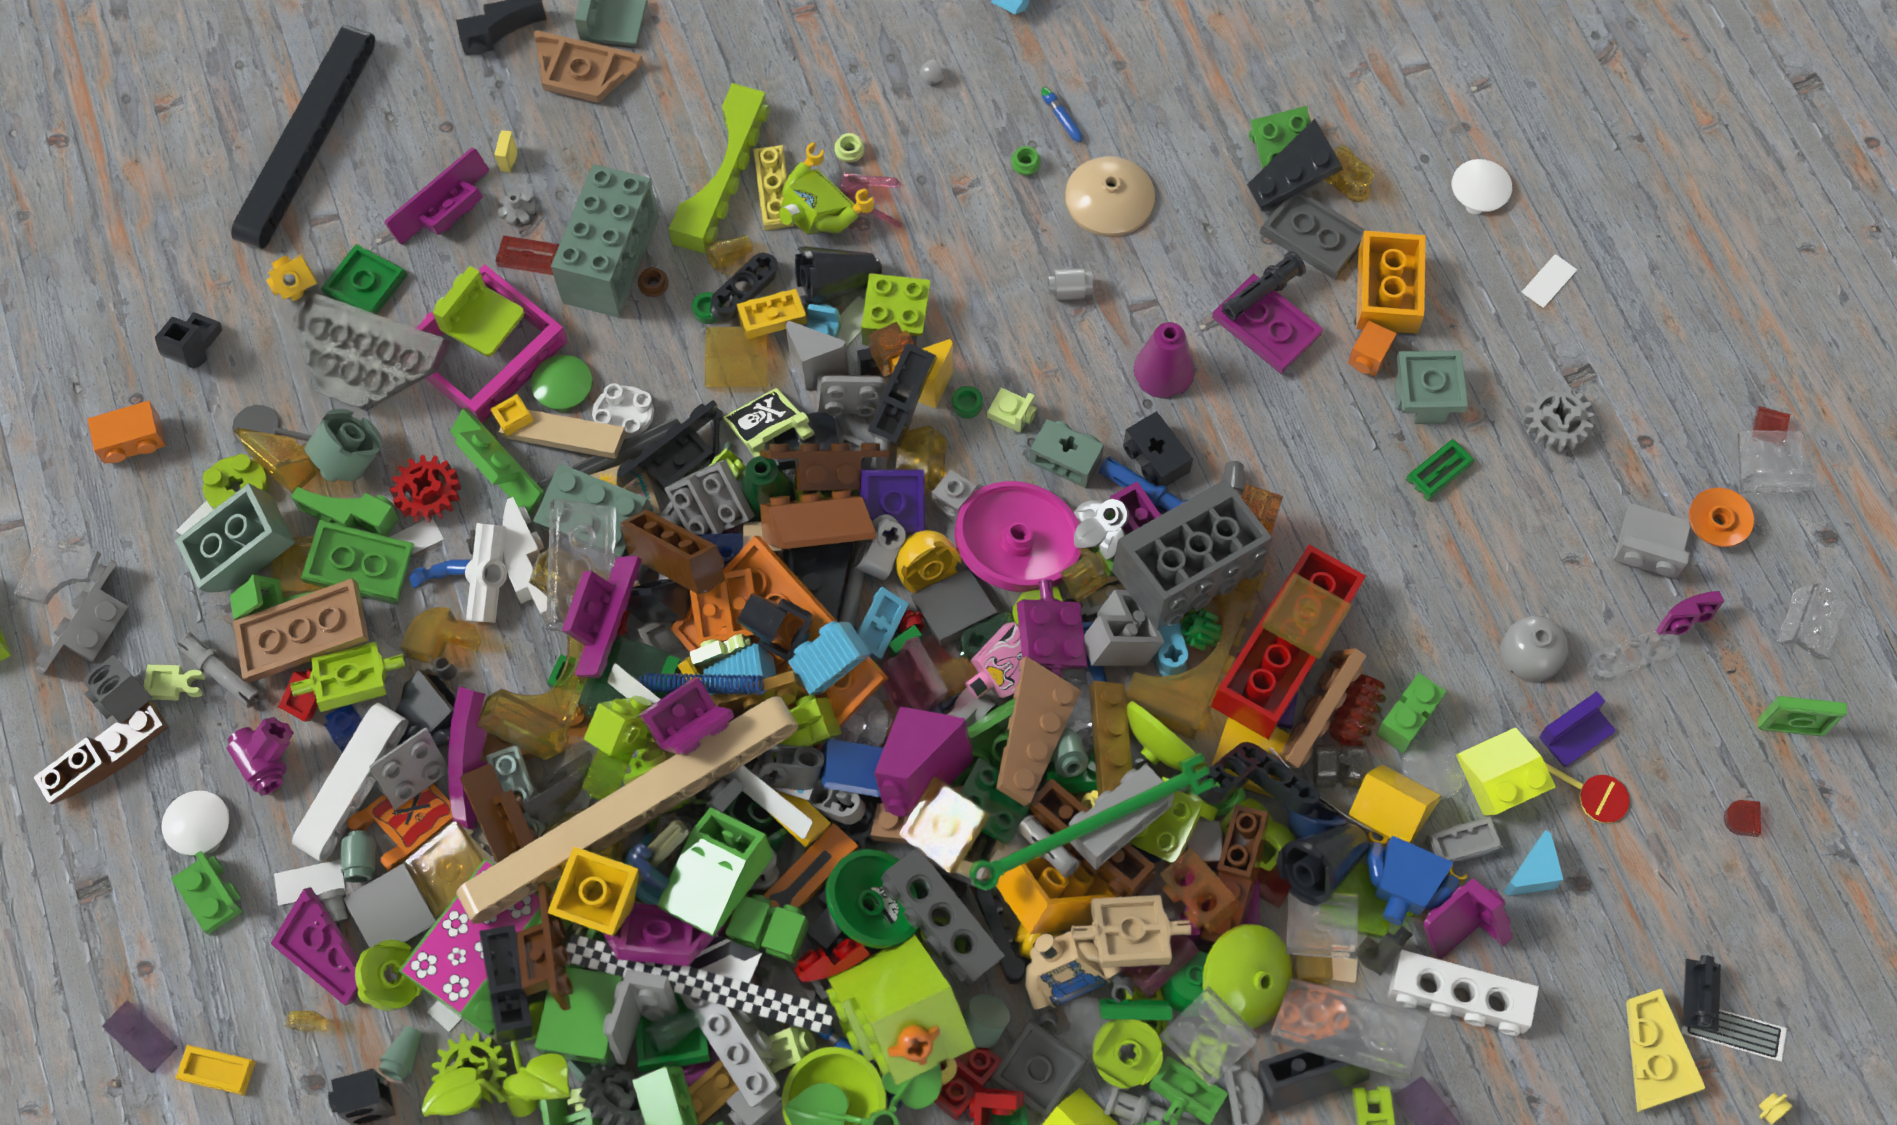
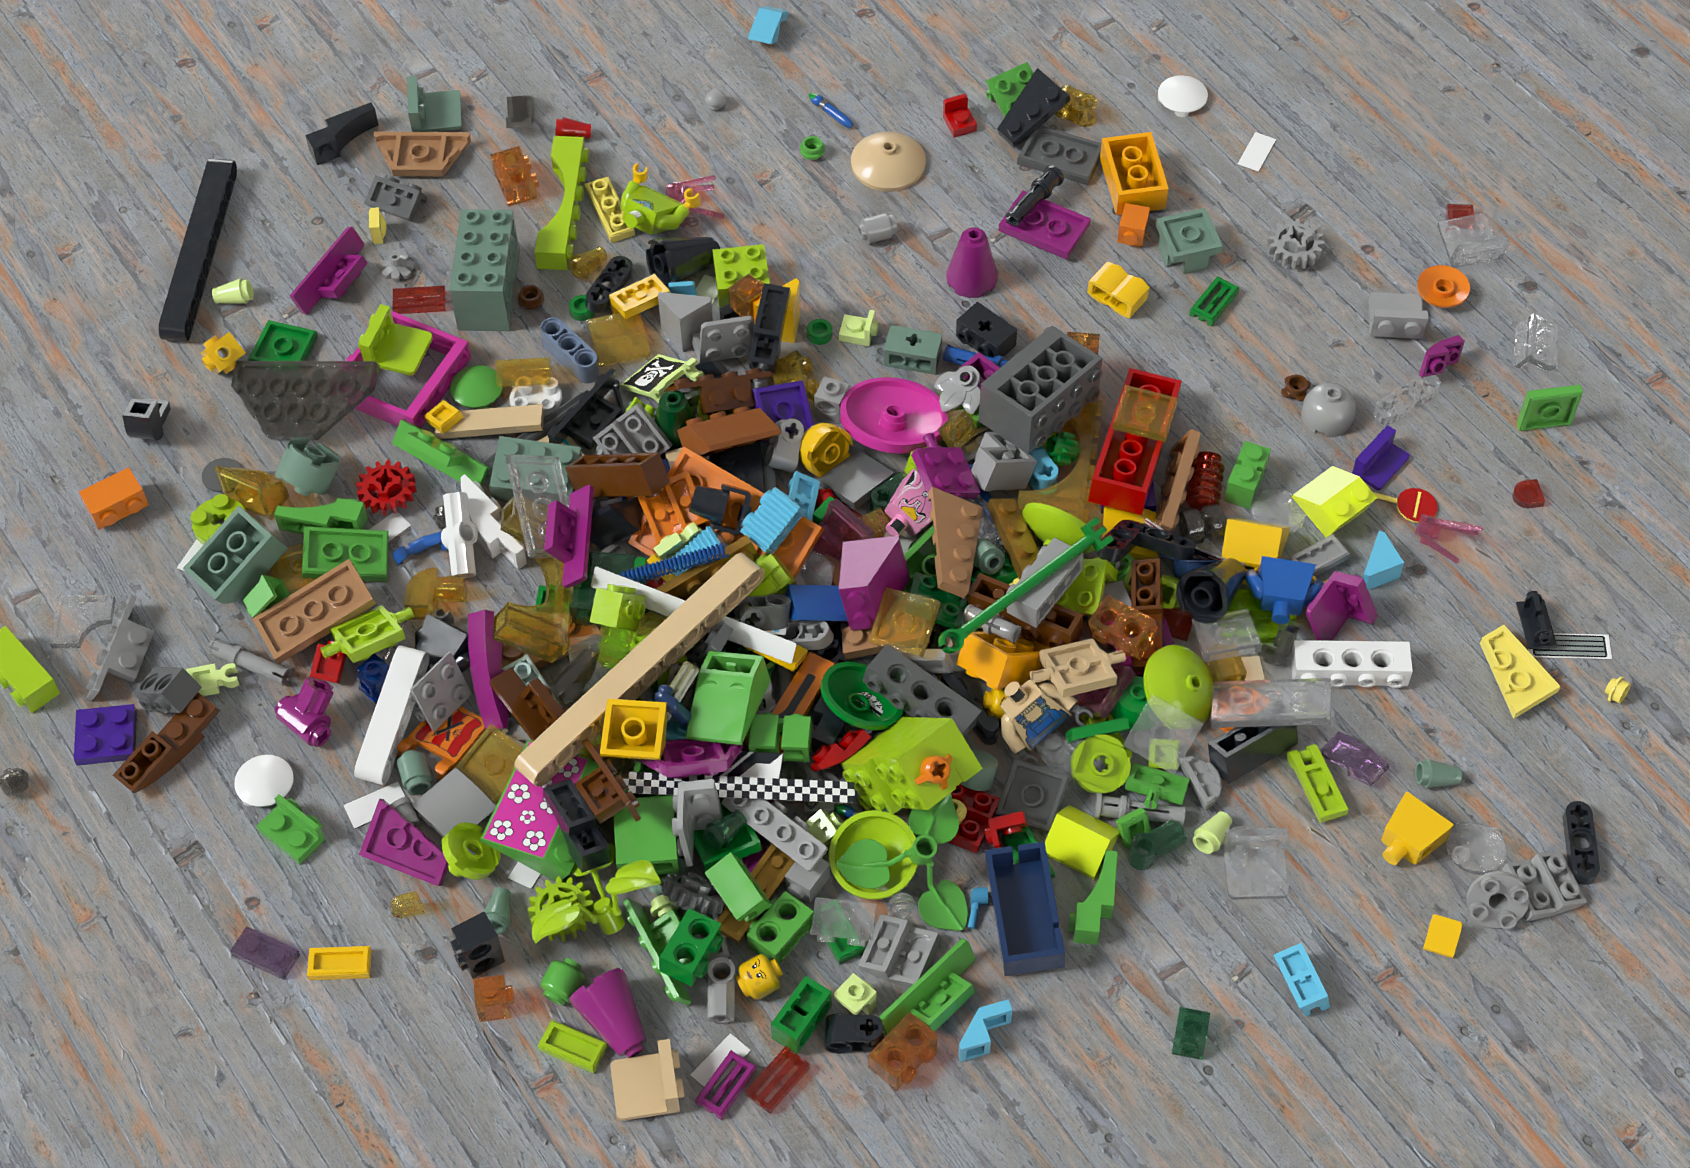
camera: 15 degrees left, 10 degrees down
(43, 720) = (105, 734): none -> dark purple plate
(329, 200) = (237, 292): none -> yellowish green cone
(535, 119) = (395, 197): none -> dark grey bracket
(615, 379) = (523, 372): none -> clear yellow bracket
(673, 349) = (569, 350): none -> sand blue beam
(677, 121) = (514, 175): none -> clear orange brick
(685, 718) = (669, 587): magenta bracket -> none
(706, 39) = (520, 111): none -> clear smoke slope
(757, 75) = (572, 128): none -> red cone
(849, 141) = (664, 167): yellowish green plate -> none
(1208, 156) = (958, 115): none -> red bracket
(1329, 430) = (1118, 289): none -> yellow brick
(1505, 600) = (1298, 382): none -> reddish brown plate
(1611, 835) = (1431, 527): none -> clear pink plant

